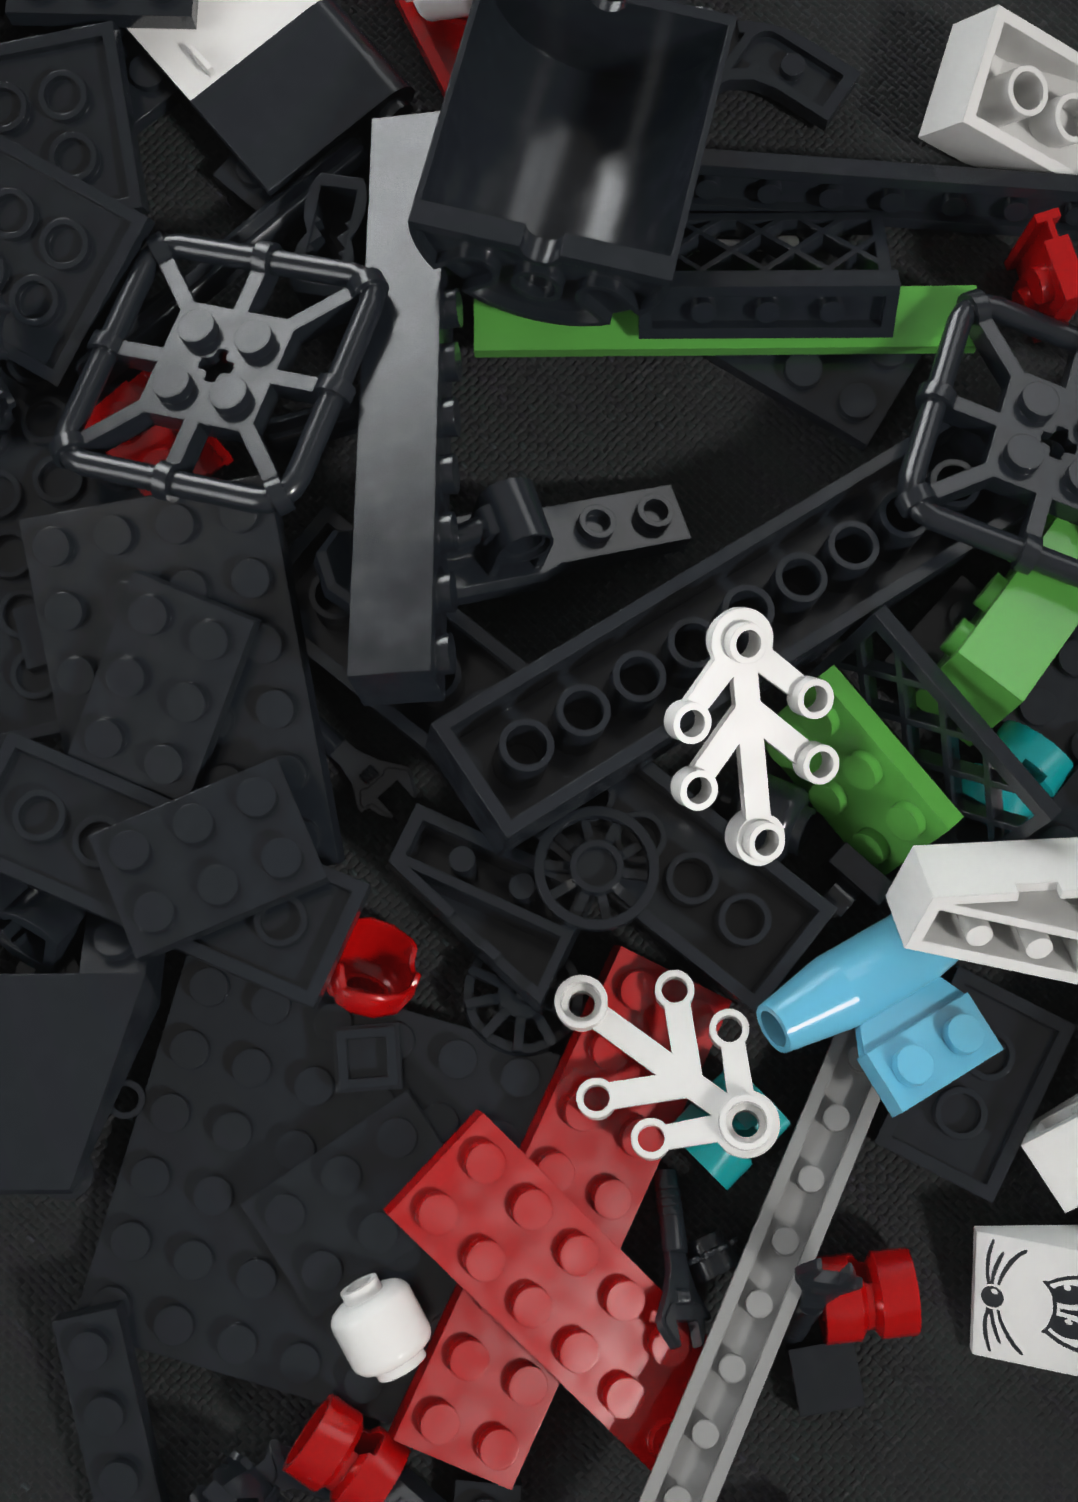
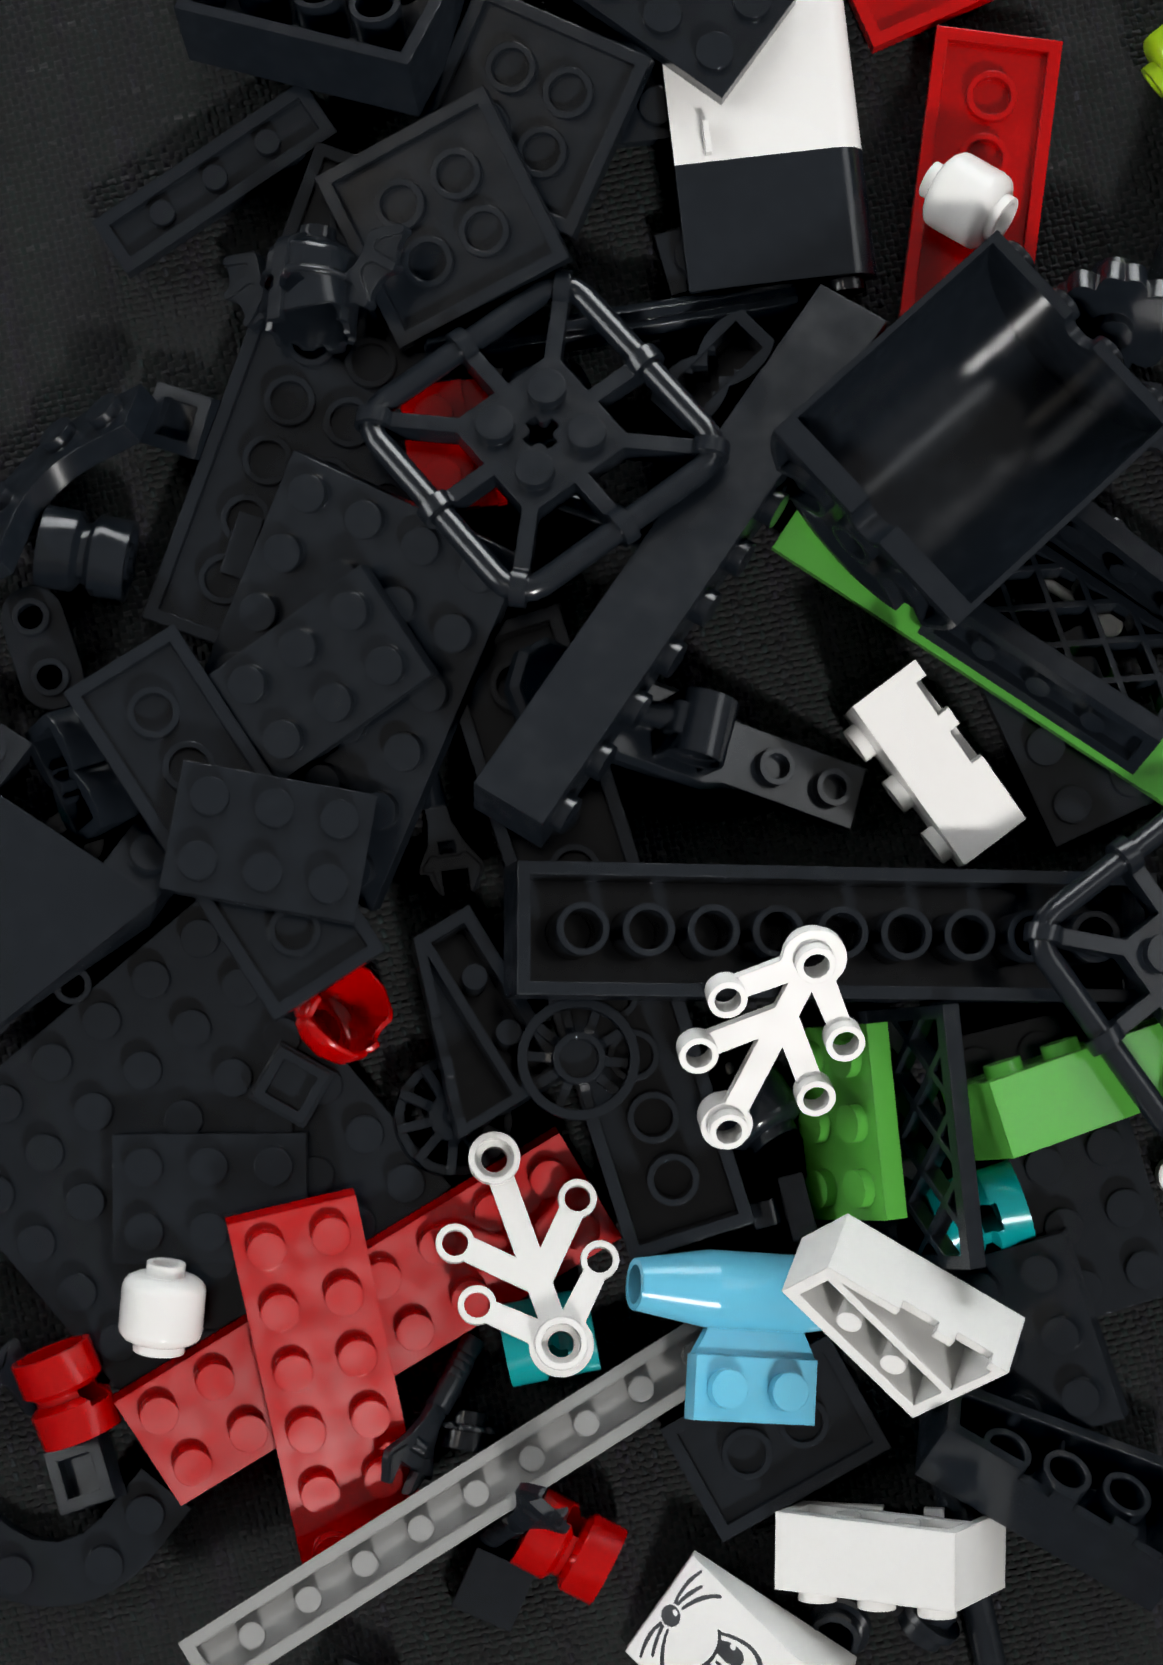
camera: 35 degrees right, 5 degrees up
(721, 442) = (932, 767): none -> white wedge

